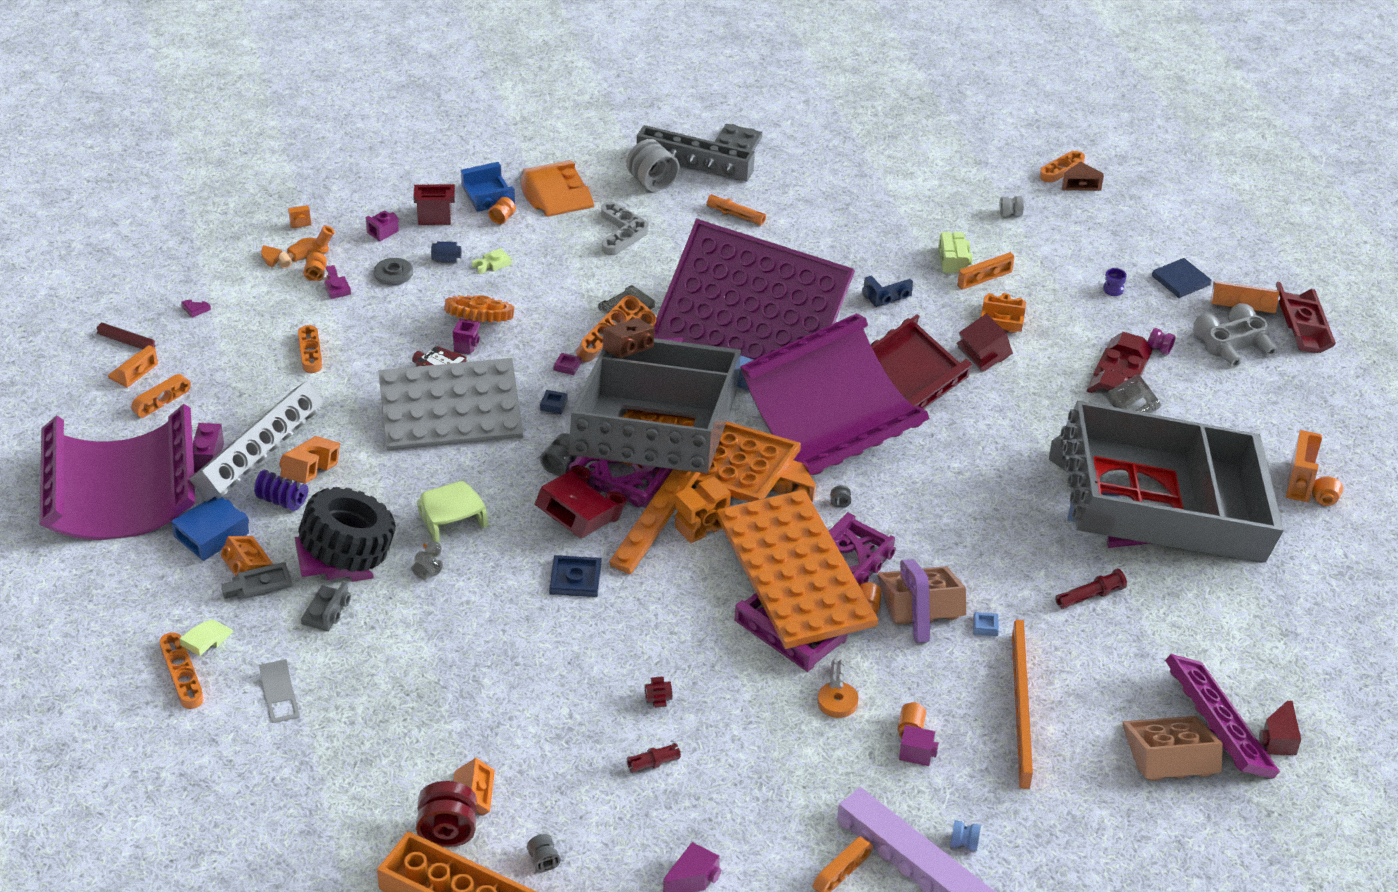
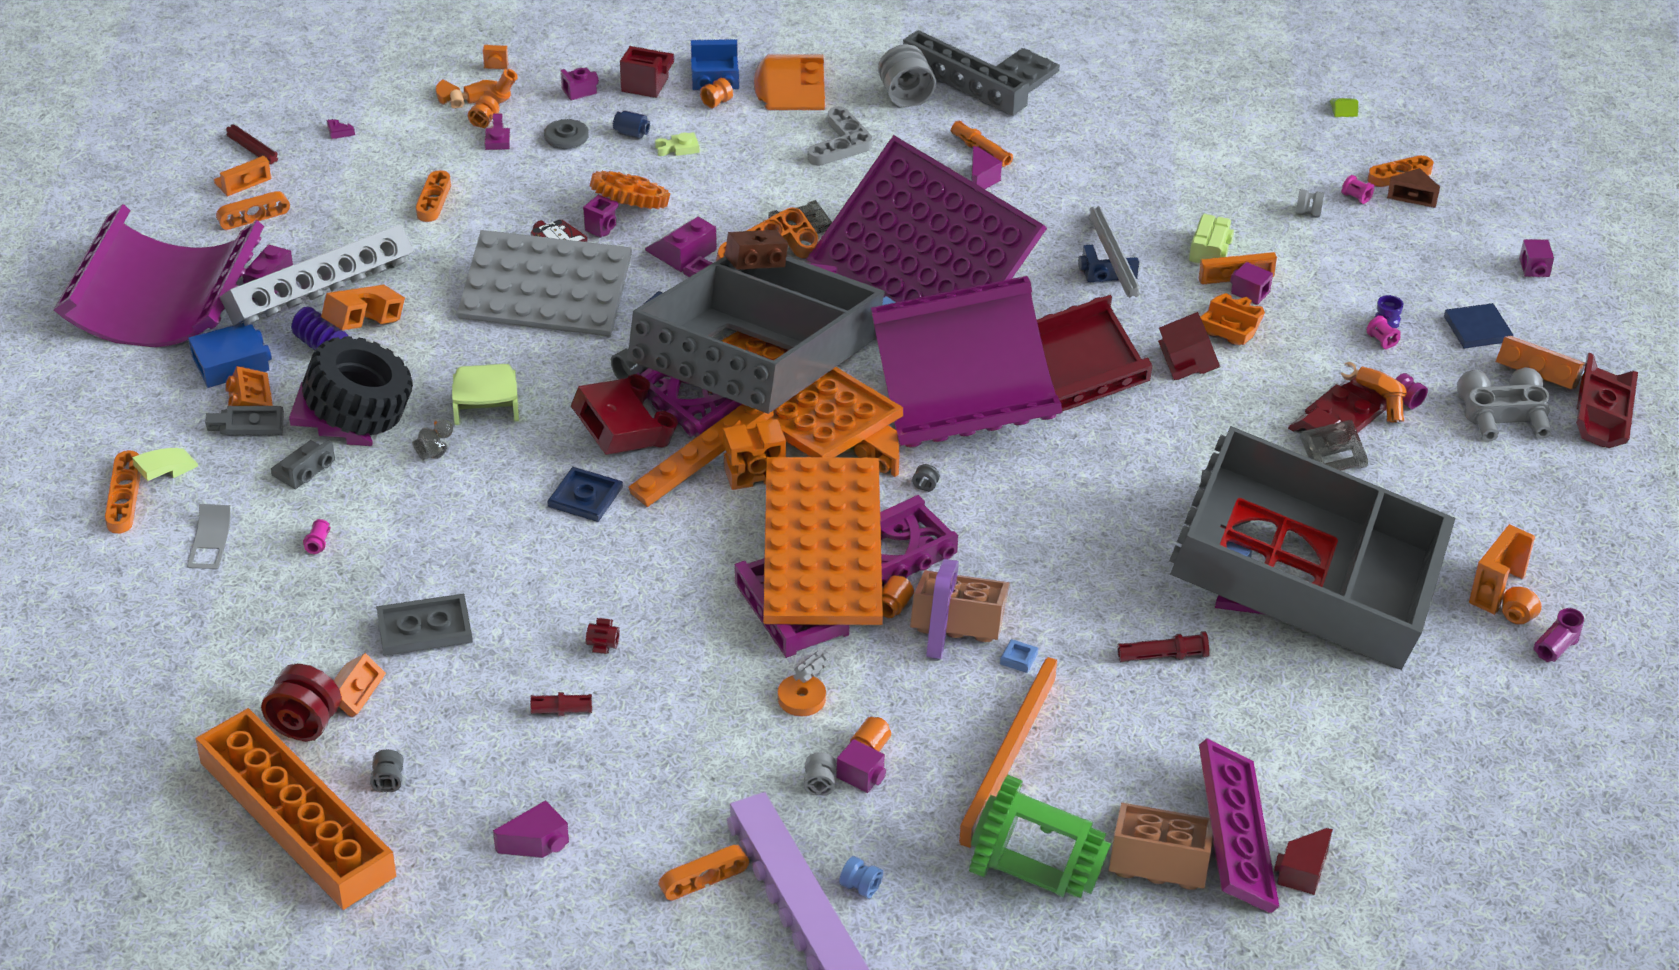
camera: 20 degrees right, 0 degrees up
(374, 671) = (315, 540): none -> dark pink pin
(505, 720) = (424, 624): none -> dark grey plate
(544, 344) = (685, 243): none -> magenta slope
(750, 226) = (985, 168): none -> magenta slope
(888, 758) = (820, 774): none -> light grey wheel
(893, 278) = (1114, 252): none -> light grey axle
(994, 123) = (1344, 107): none -> lime slope
(1002, 280) = (1251, 282): none -> magenta brick
(1040, 187) = (1357, 189): none -> dark pink bush
(1058, 770) = (998, 824): none -> bright green piece
(1124, 299) = (1383, 332): none -> dark pink bush
(1147, 341) = (1385, 385): none -> orange arm
(1197, 215) = (1536, 258): none -> magenta brick
(1366, 506) = (1560, 635): none -> magenta piece

